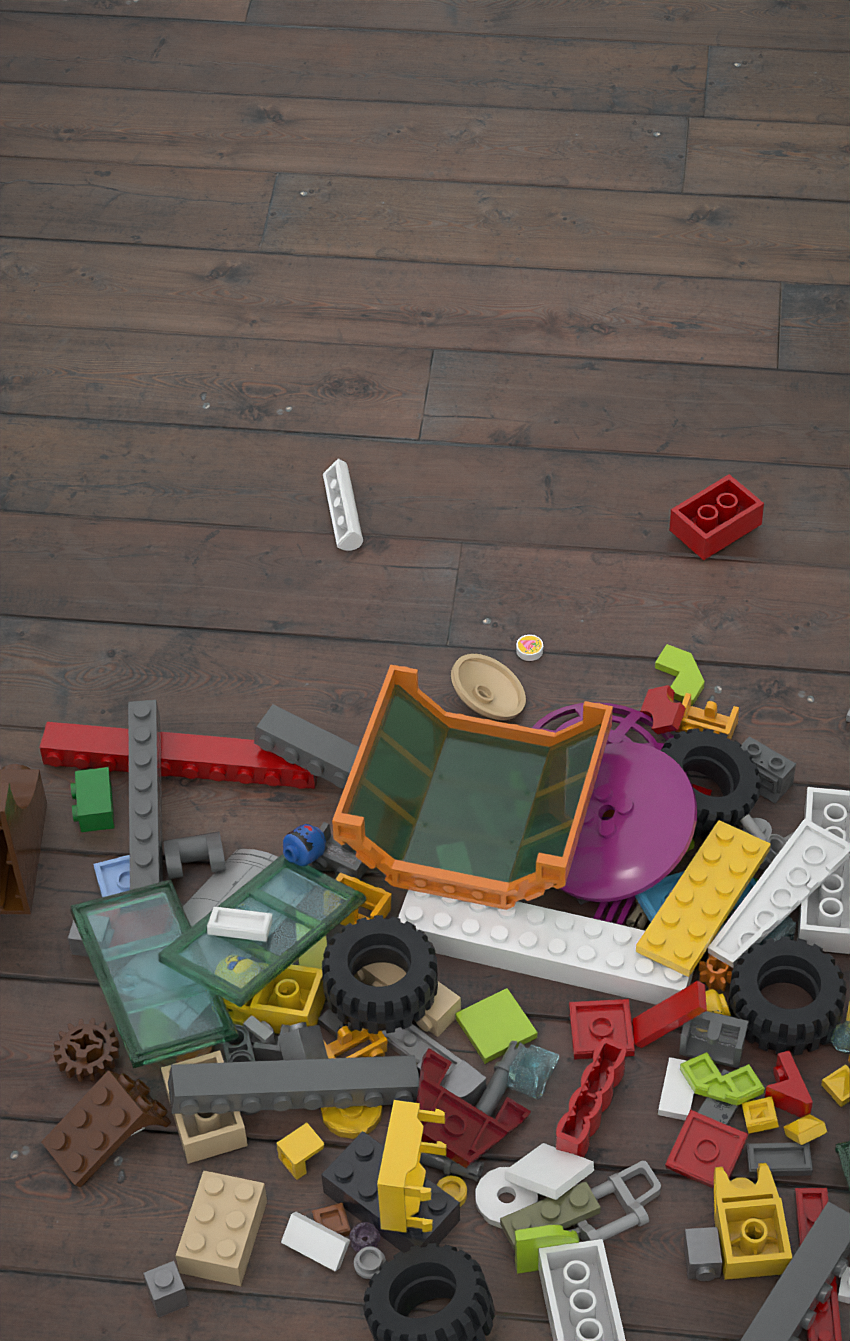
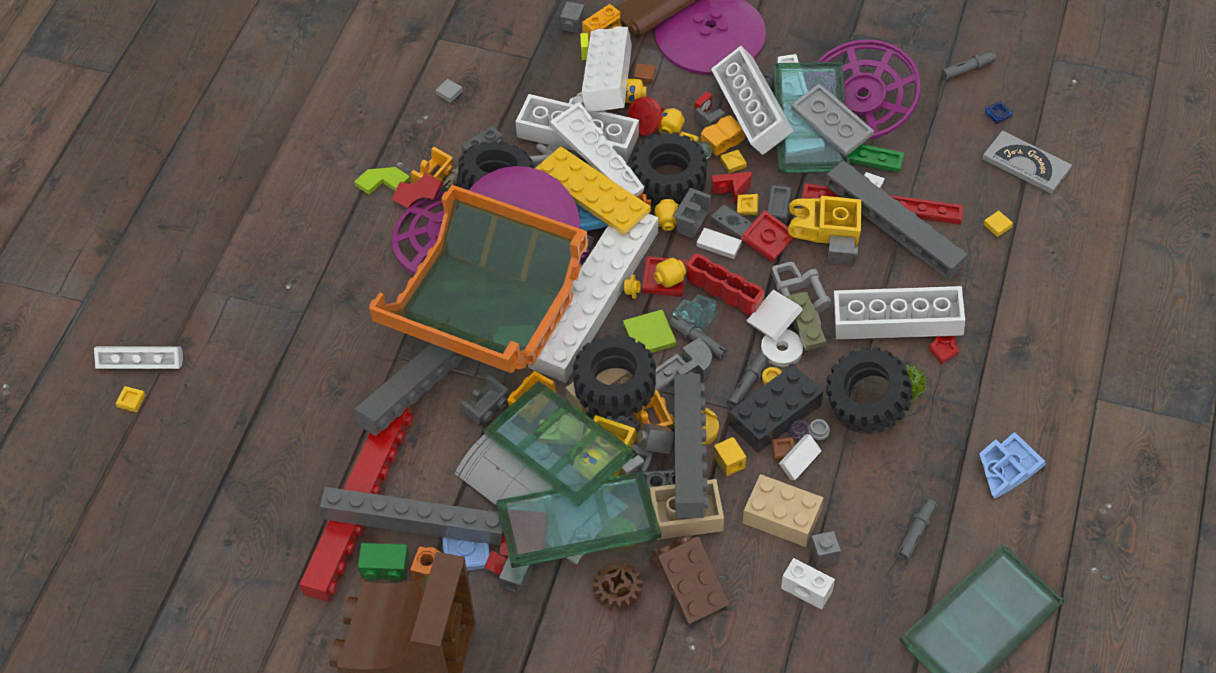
camera: 80 degrees left, 5 degrees up
(93, 842) = (422, 556): none -> orange brick
(109, 1273) = (807, 583): none -> white brick
(193, 849) = (459, 481): dark grey connector -> none
(239, 924) = (558, 450): white tile -> none
(288, 516) = (130, 399): none -> yellow tile
(304, 845) = (485, 411): blue head -> none
(401, 1173) = (788, 357): yellow piece -> none
(466, 1129) = (731, 360): dark red wing -> none
(488, 687) = (363, 286): tan dish -> none
(529, 647) = (326, 262): tile -> none
(531, 1239) = (831, 327): lime tile -> none
(567, 988) = (632, 286): none -> yellow plate
(592, 1023) = (669, 272): none -> yellow head
(669, 1014) = (674, 228): red tile -> none
(716, 517) = (251, 128): red brick -> none
(730, 1088) = (720, 224): lime tile -> none
(805, 1129) = (763, 184): yellow tile -> none

